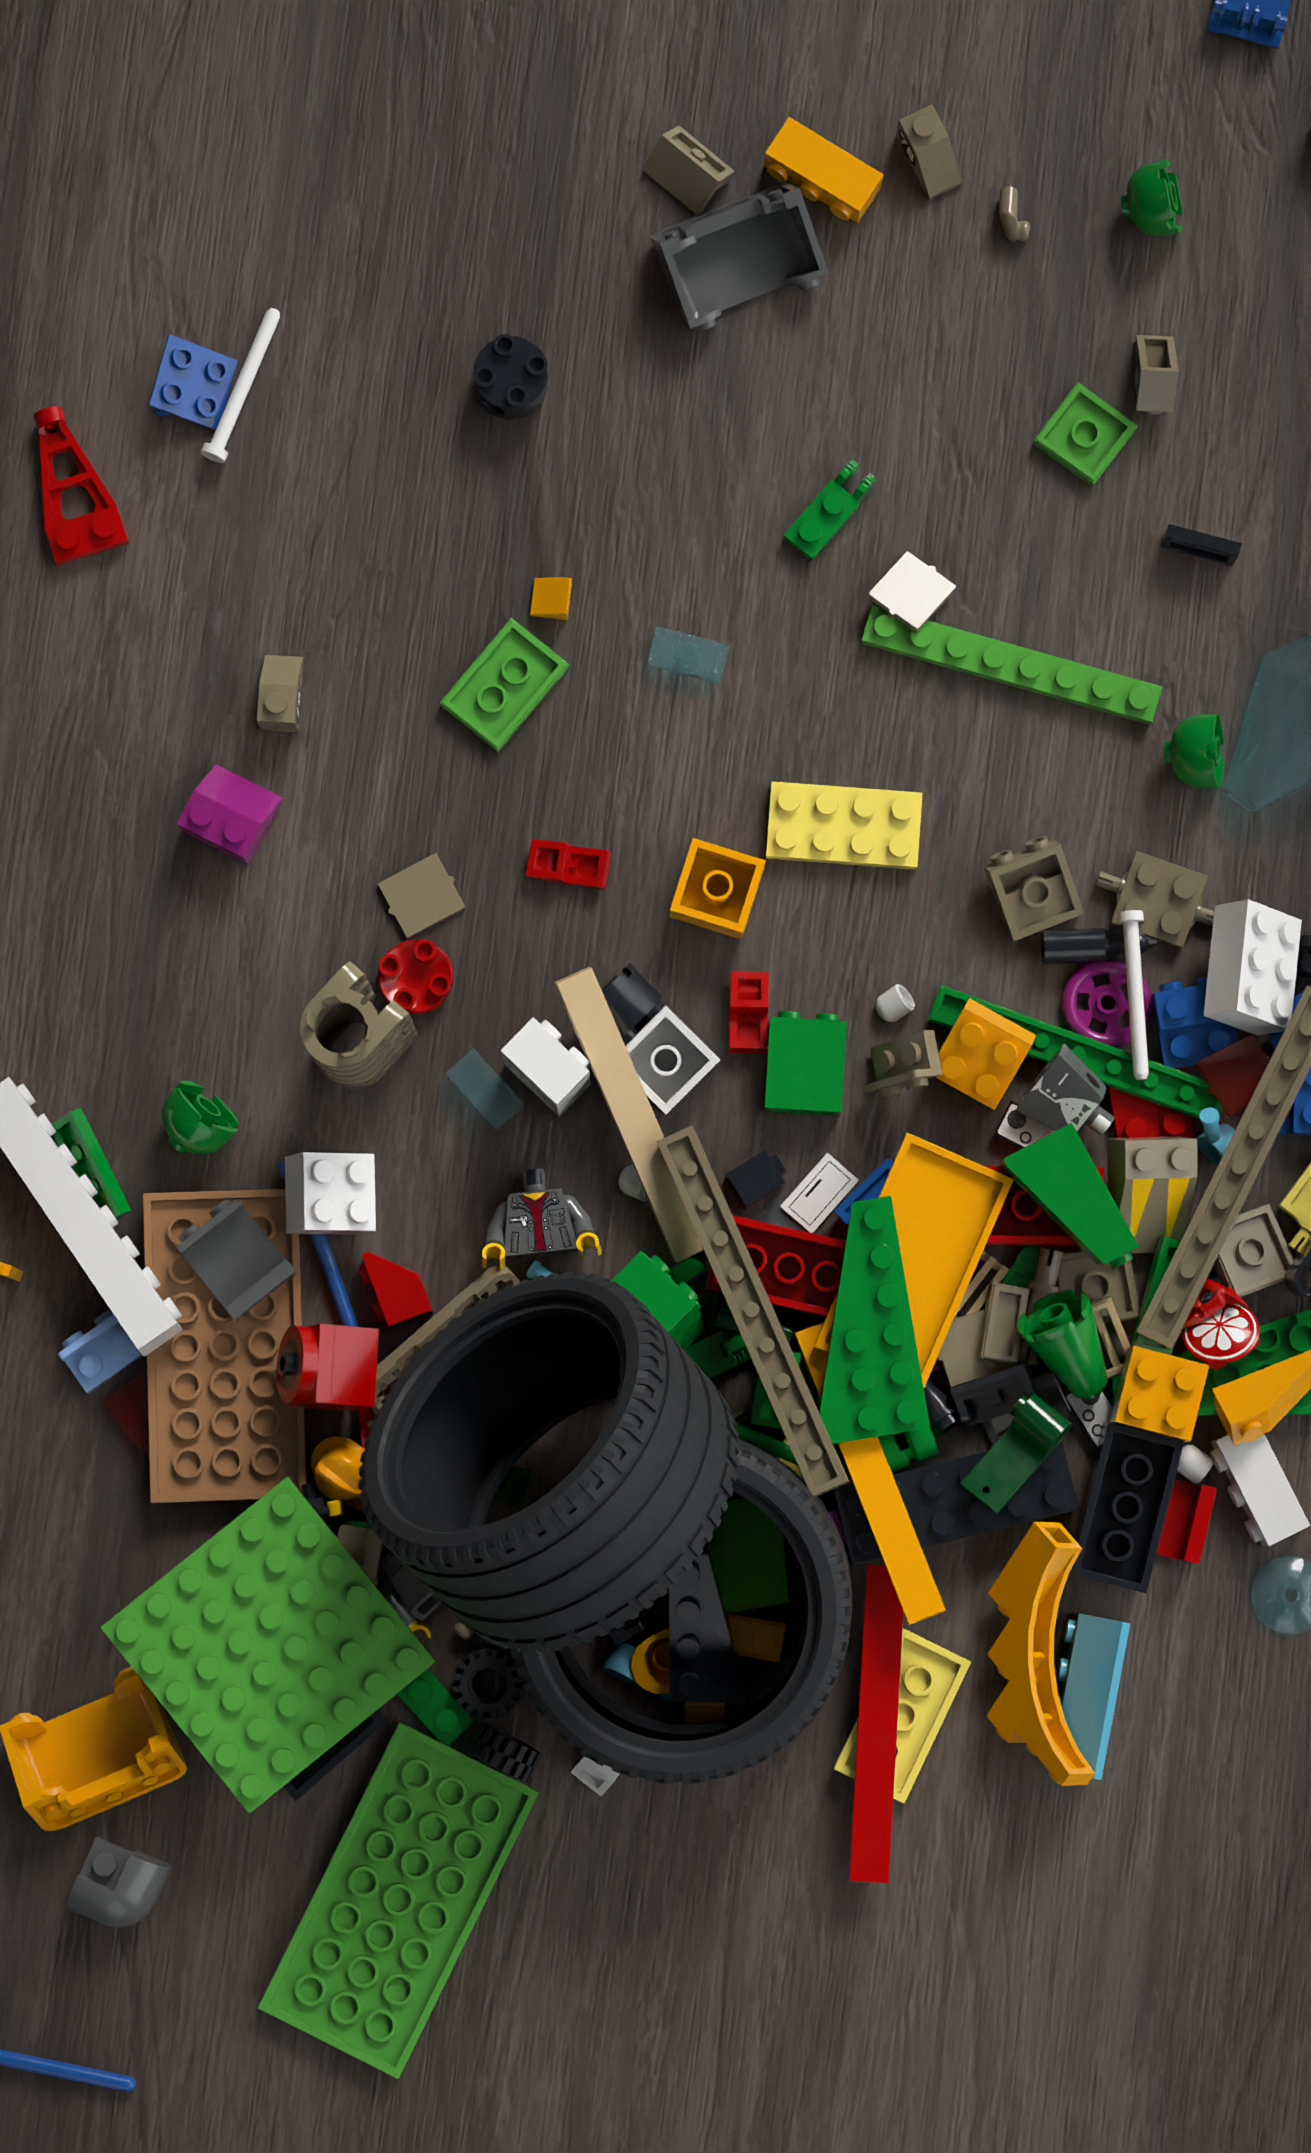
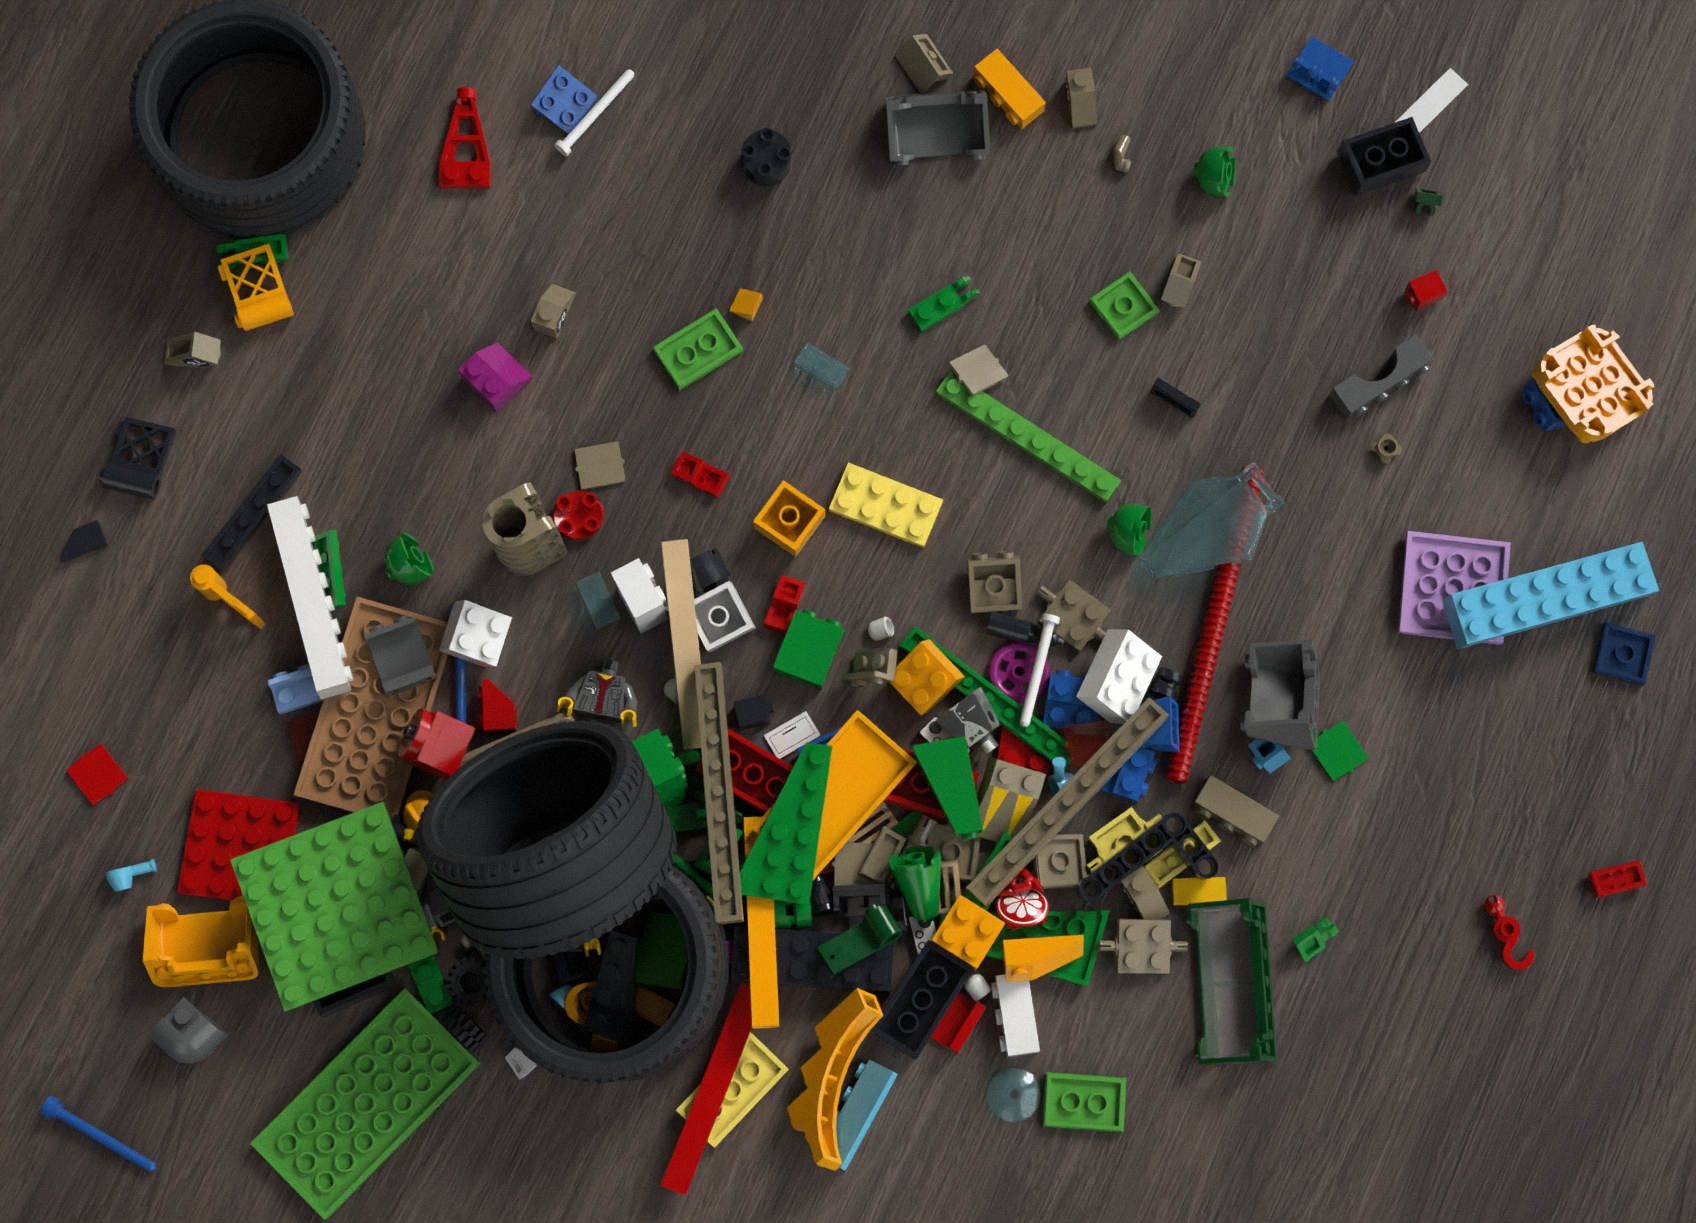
camera: 20 degrees right, 5 degrees down
(77, 1582) = (226, 828): none -> red plate

